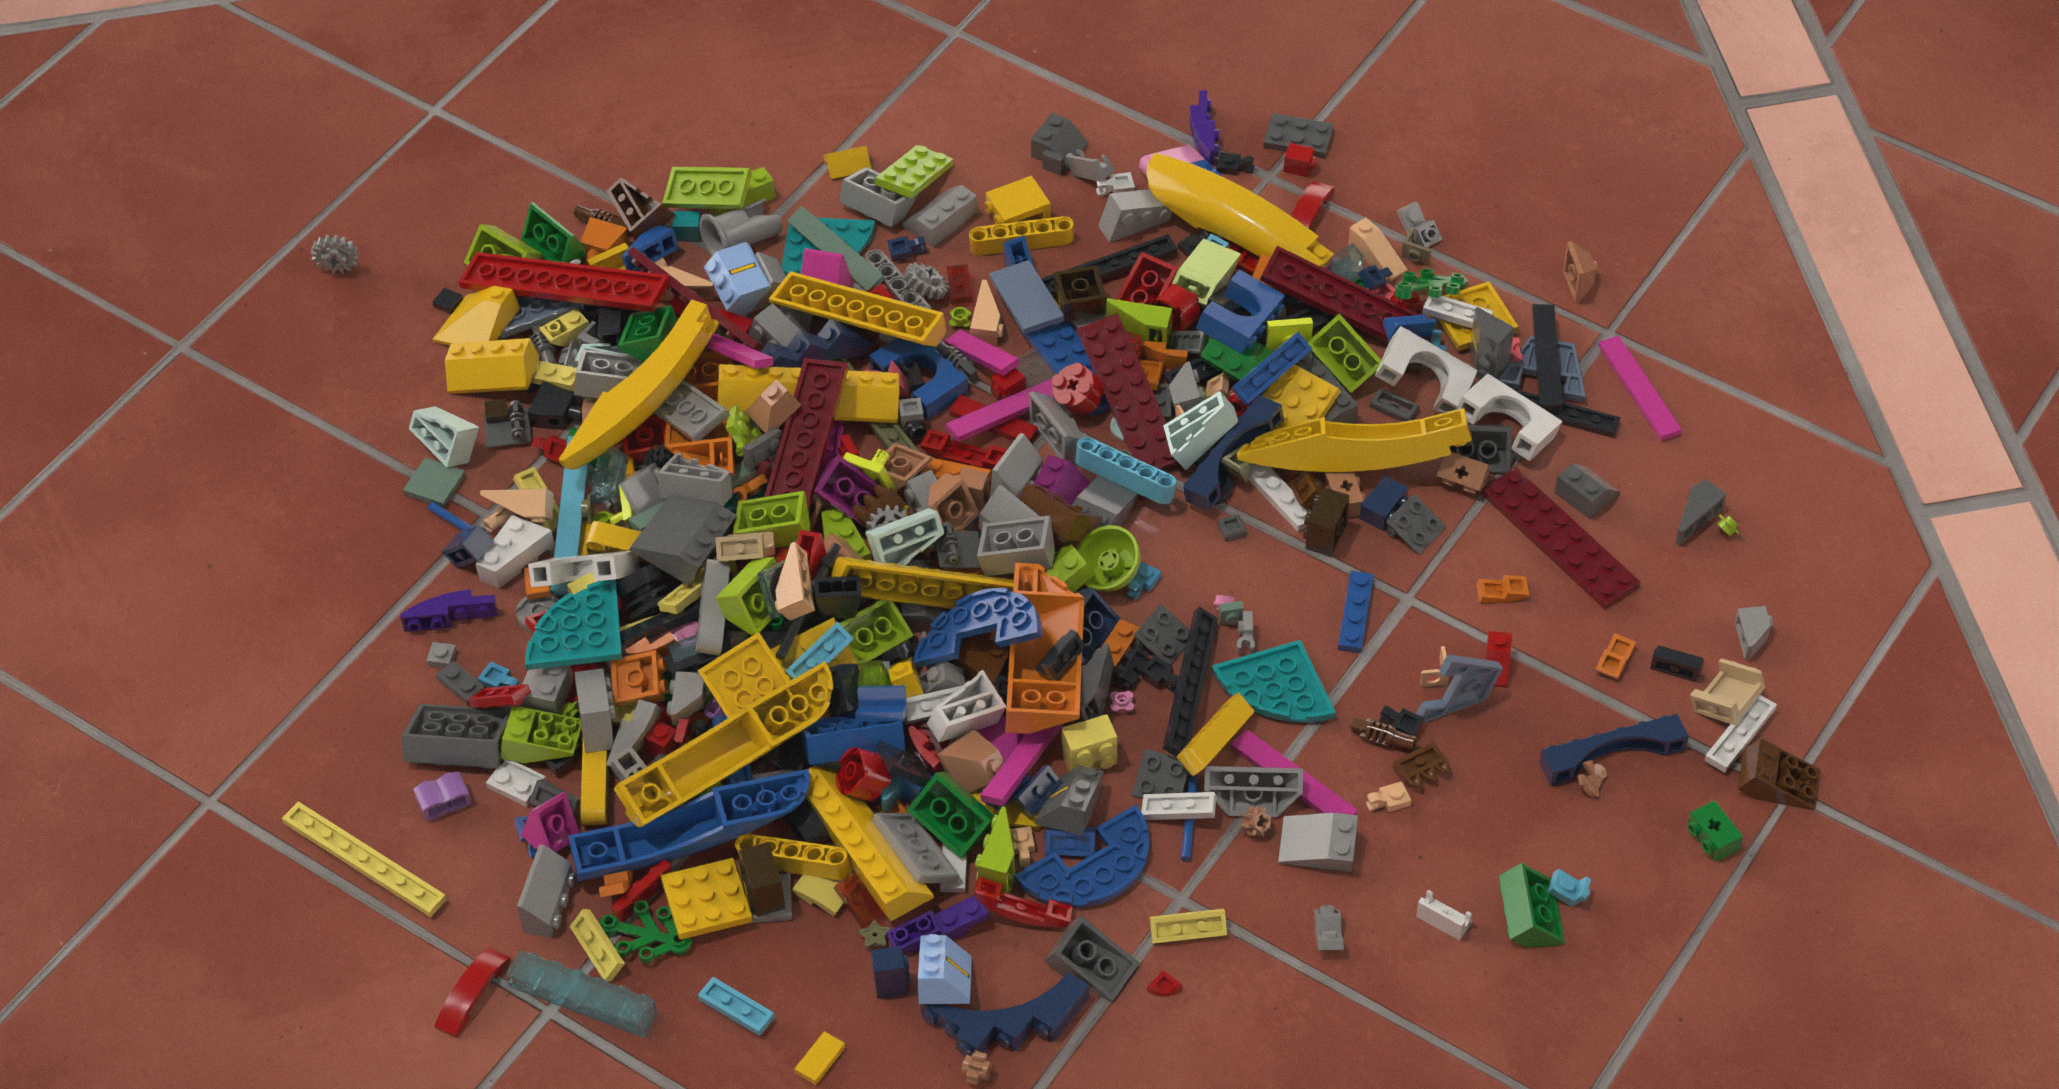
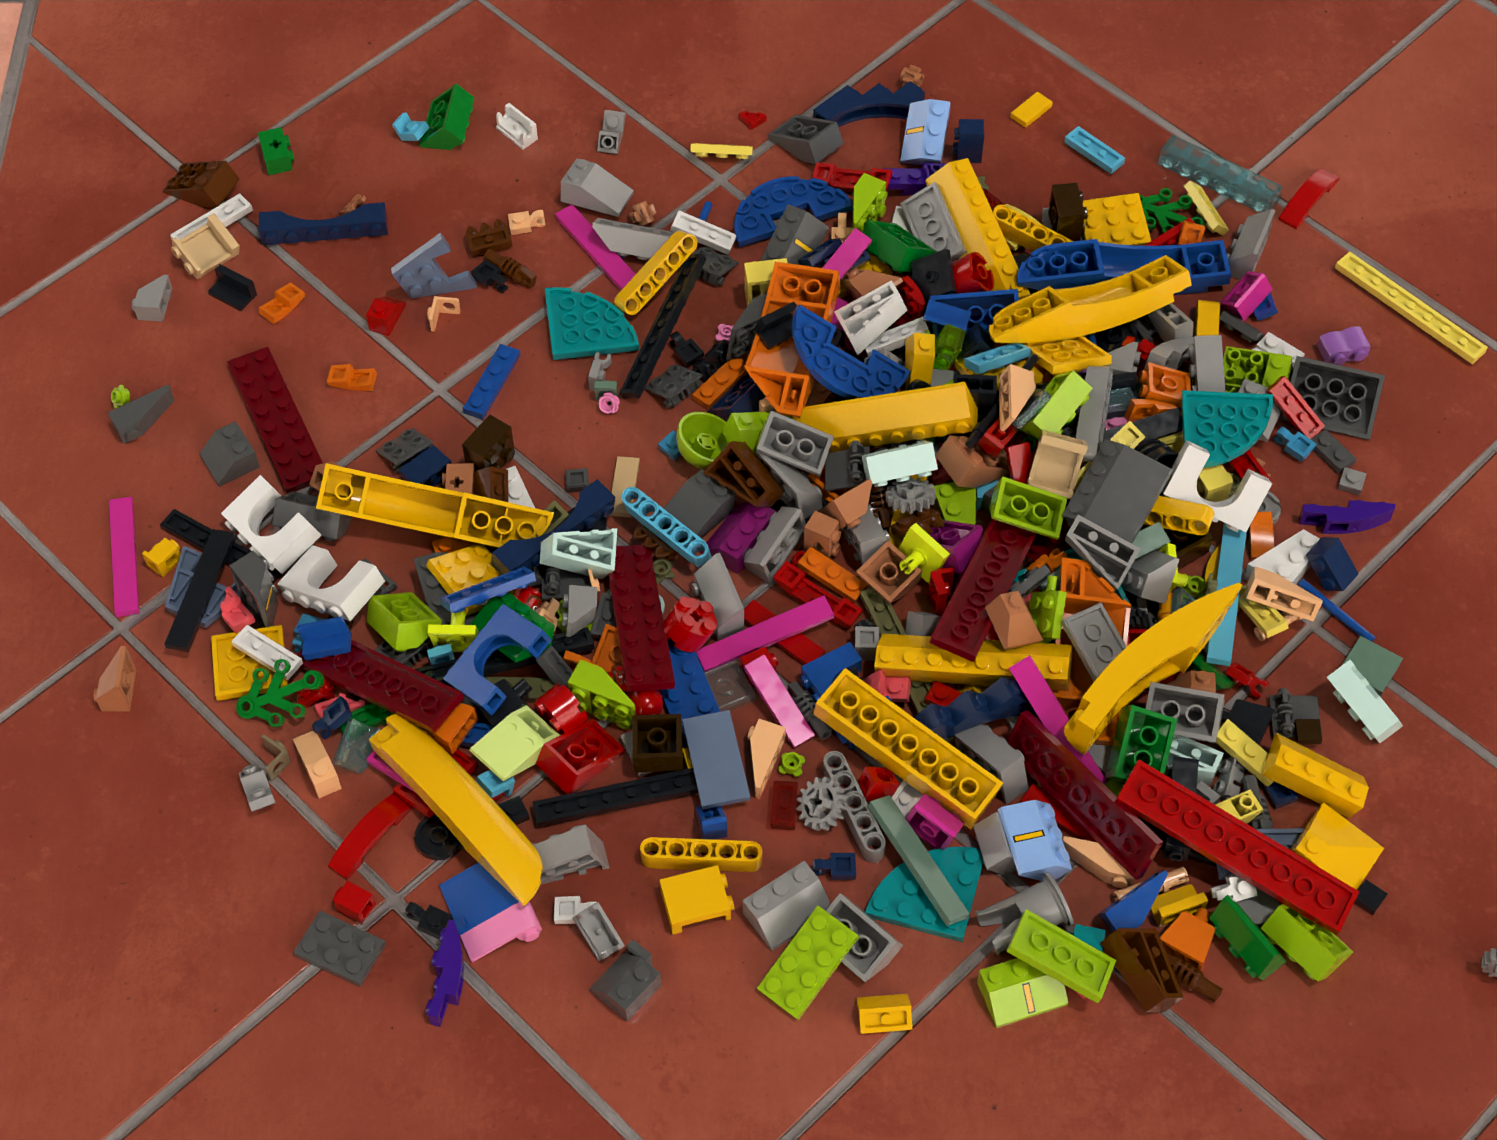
camera: 170 degrees left, 5 degrees up
(863, 441) = (921, 623): none -> light grey panel
(1183, 529) = (624, 477): none -> tan tile
(1600, 385) = (163, 556): none -> yellow brick

